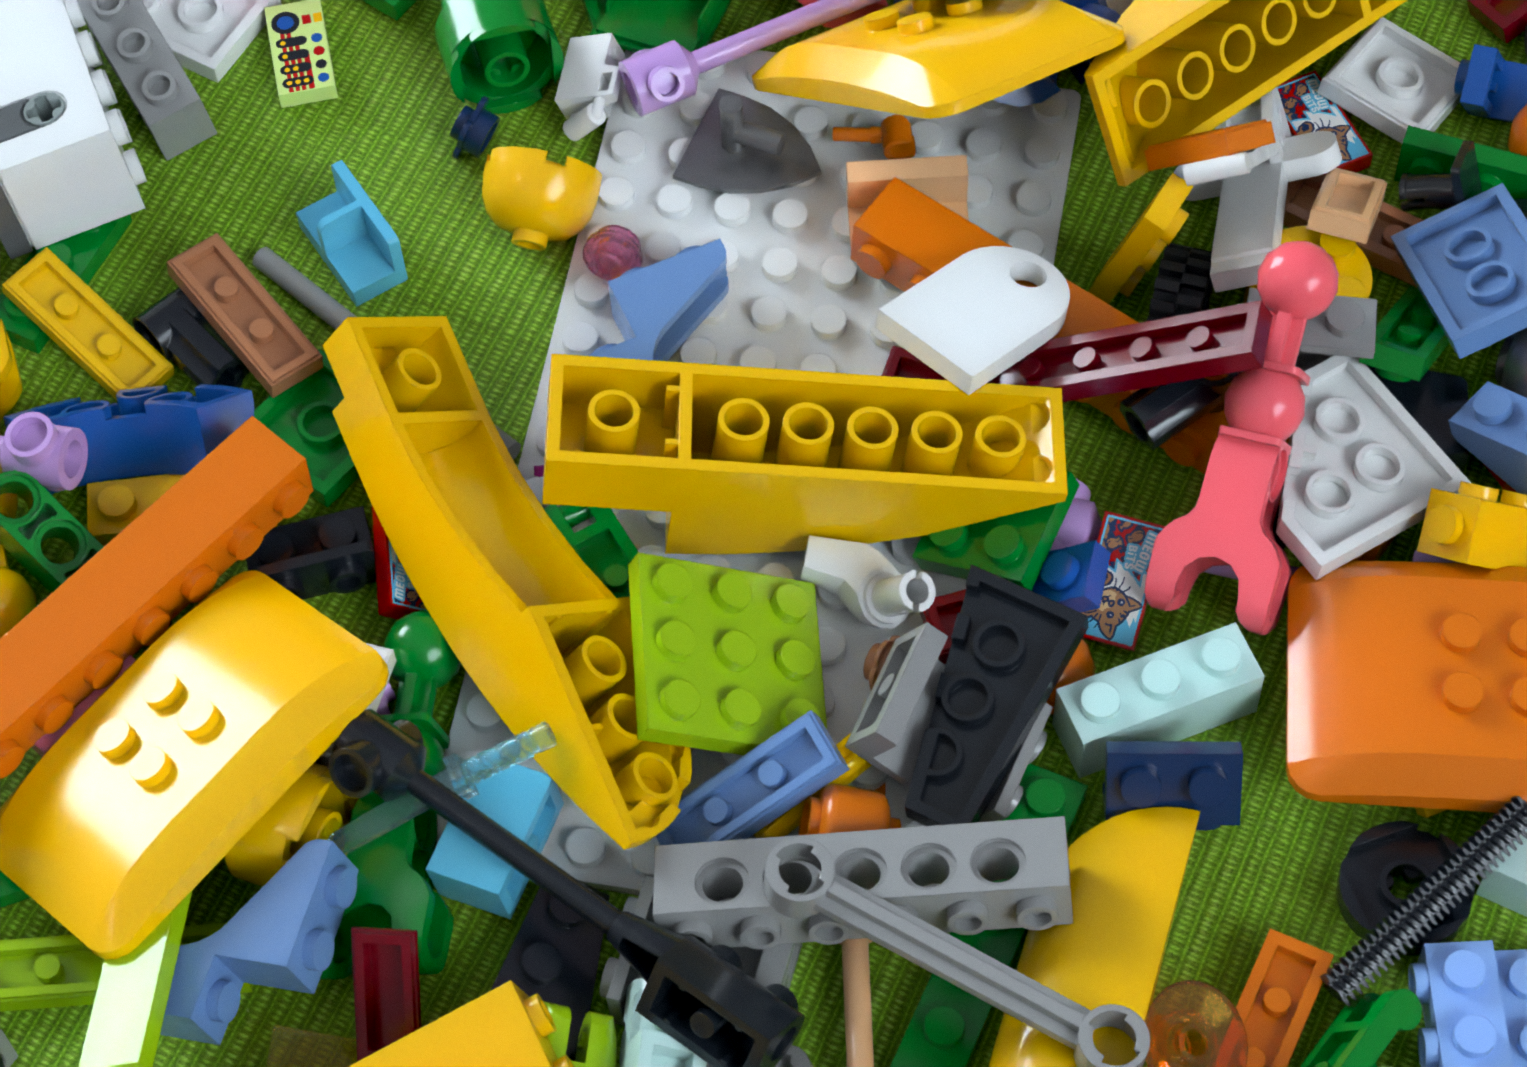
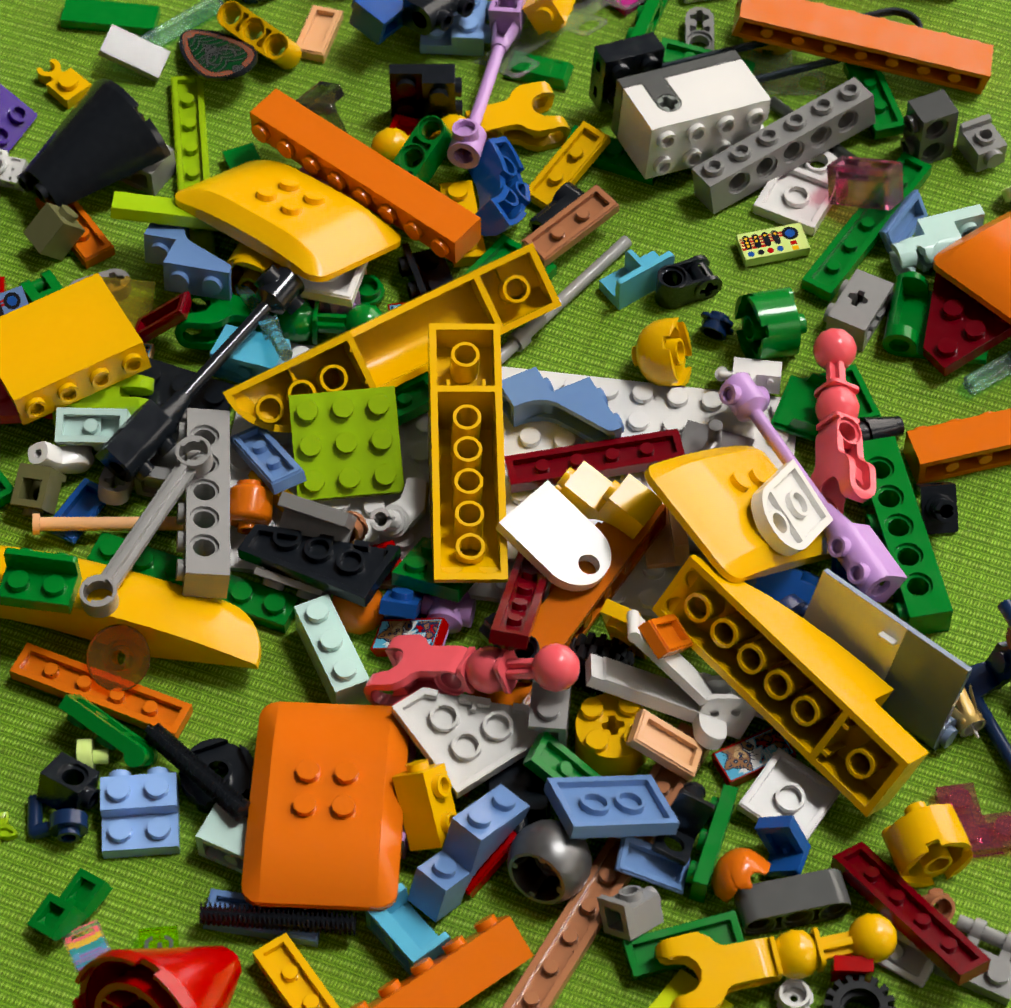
camera: 85 degrees right, 5 degrees down
(379, 166) = (684, 283): none -> black piece
(612, 252) = (621, 388): clear pink plate -> none
(758, 270) = (608, 457): none -> dark red plate
(912, 218) = (621, 505): none -> yellow arch
(1175, 775) = (274, 661): dark blue bracket -> none

